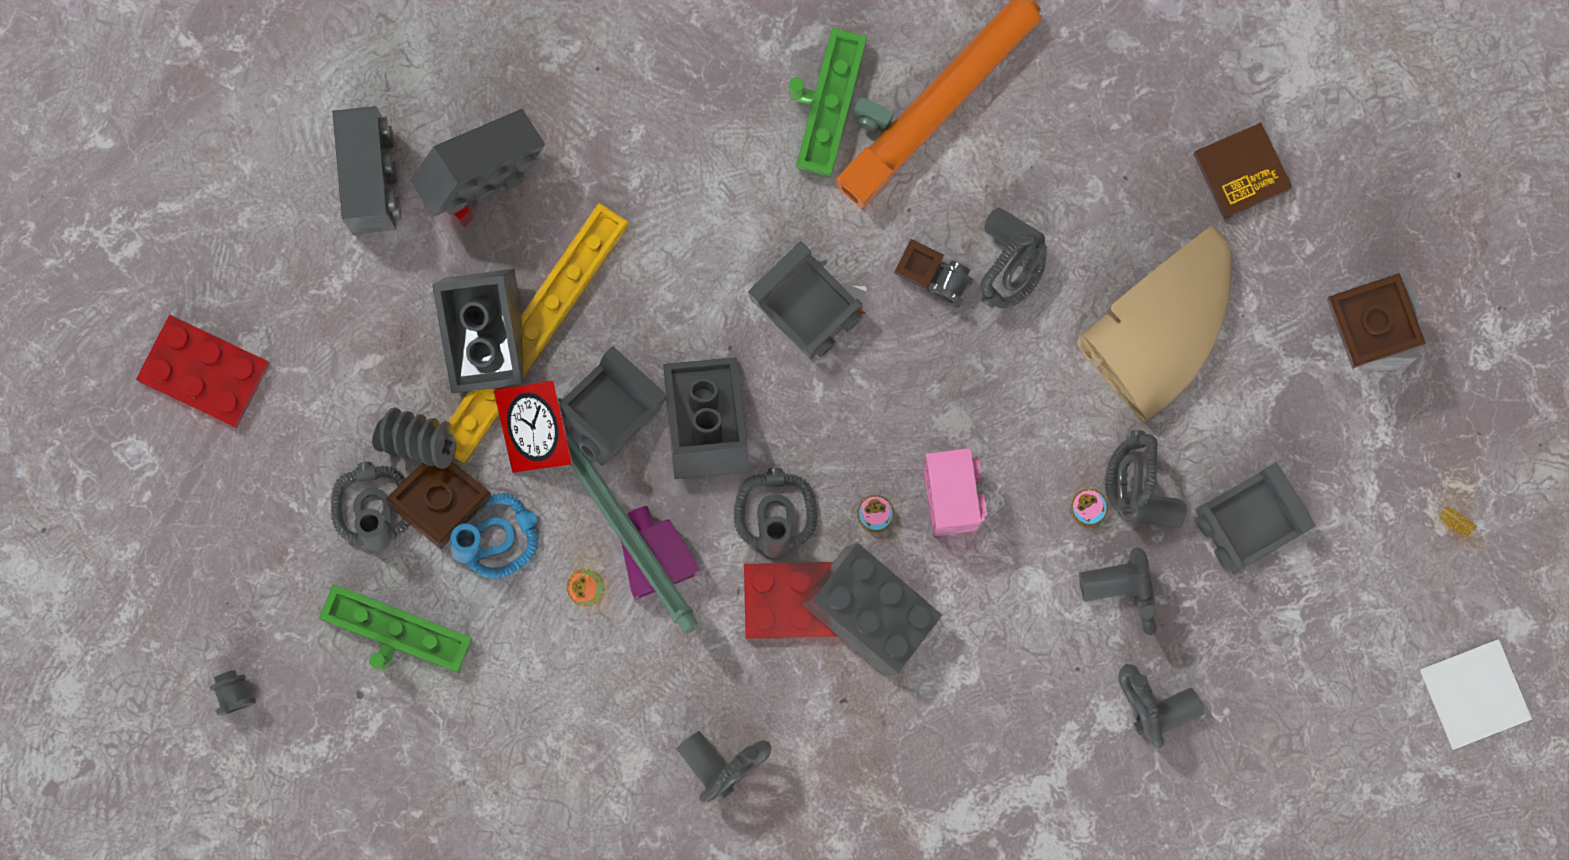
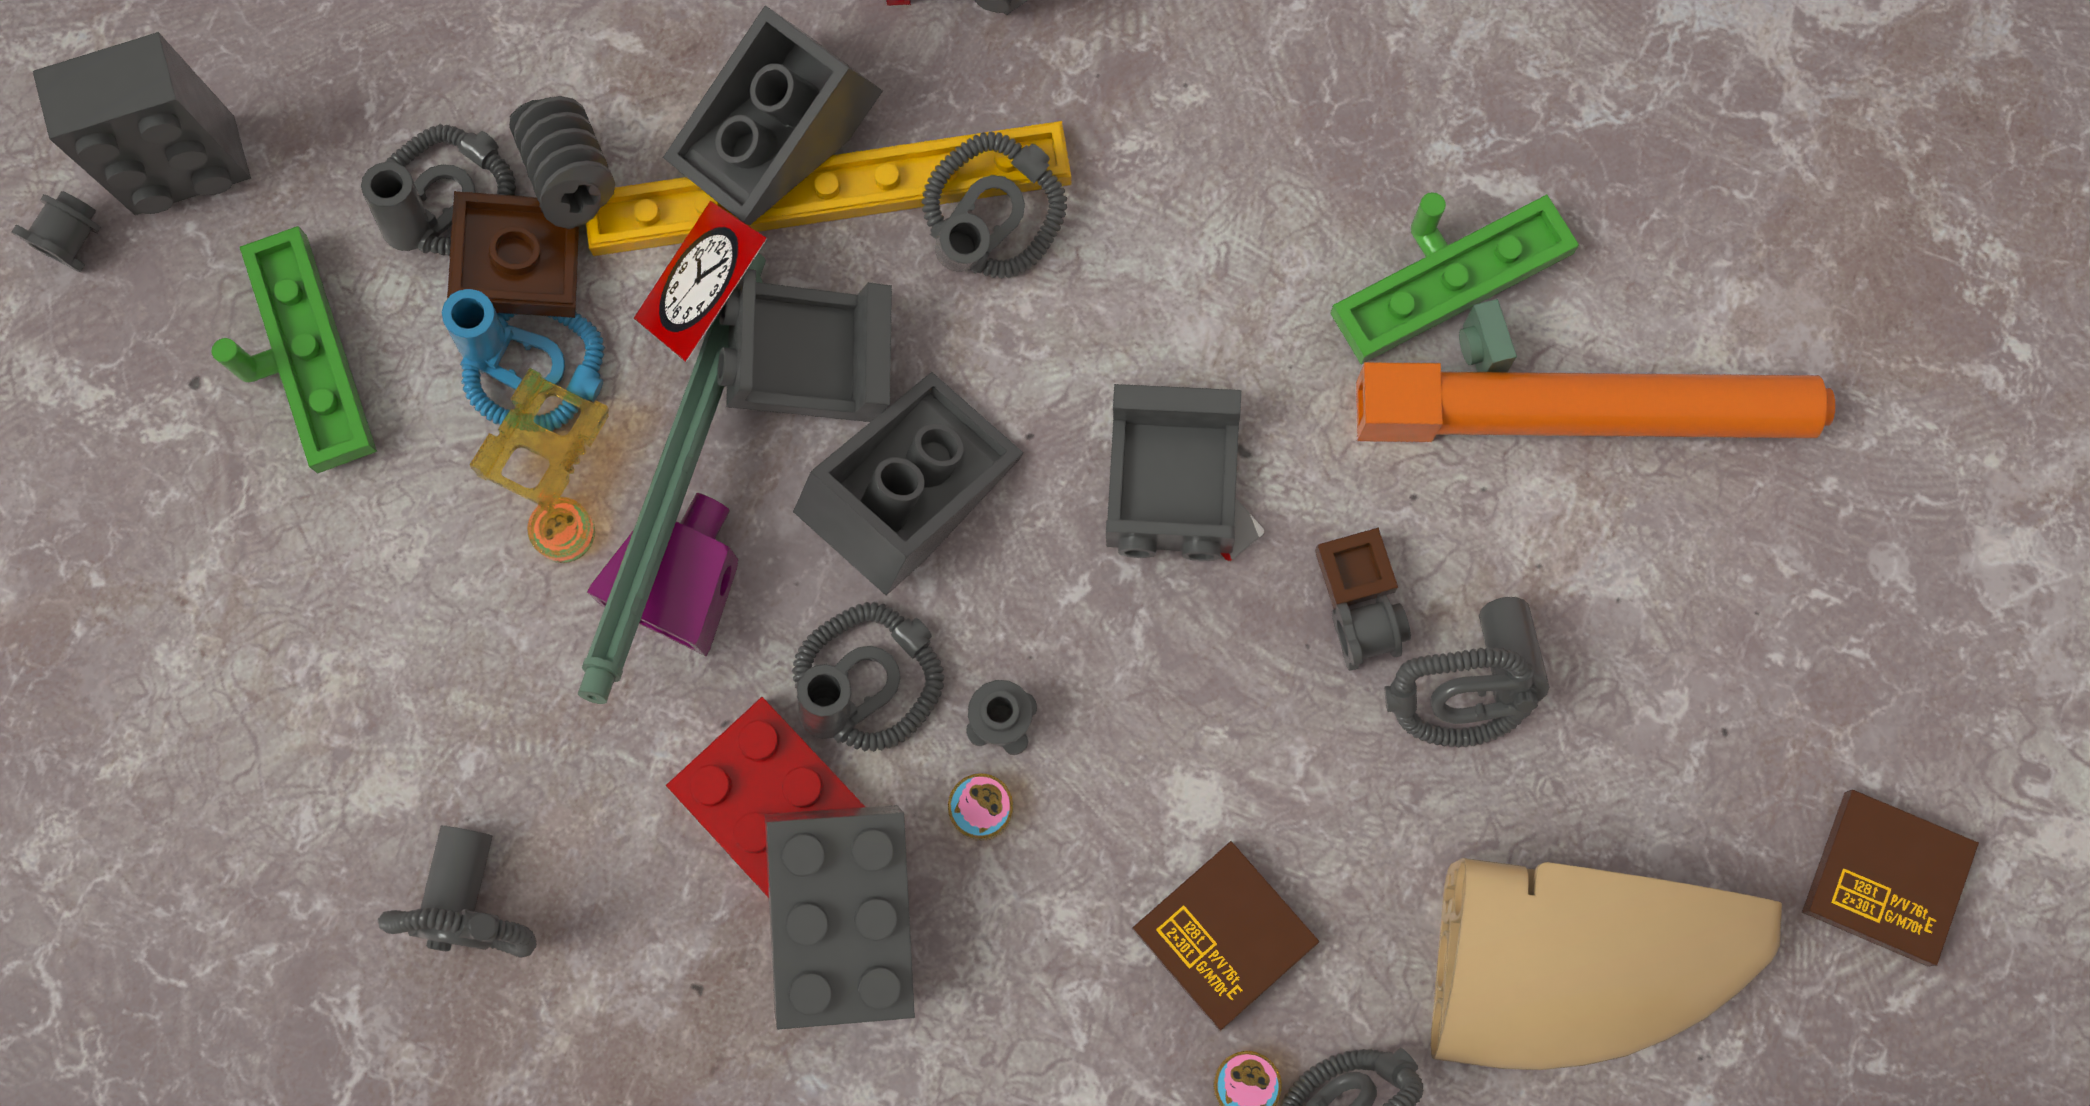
camera: 50 degrees right, 5 degrees down
(233, 608) = (142, 124): none -> dark grey brick
(552, 555) = (521, 431): none -> clear yellow piece
(622, 297) = (964, 238): none -> dark grey piece
(841, 481) = (1009, 733): none -> dark grey brick
(953, 492) = (1095, 879): bright pink brick -> none
(1021, 461) = (1225, 935): none -> reddish brown tile

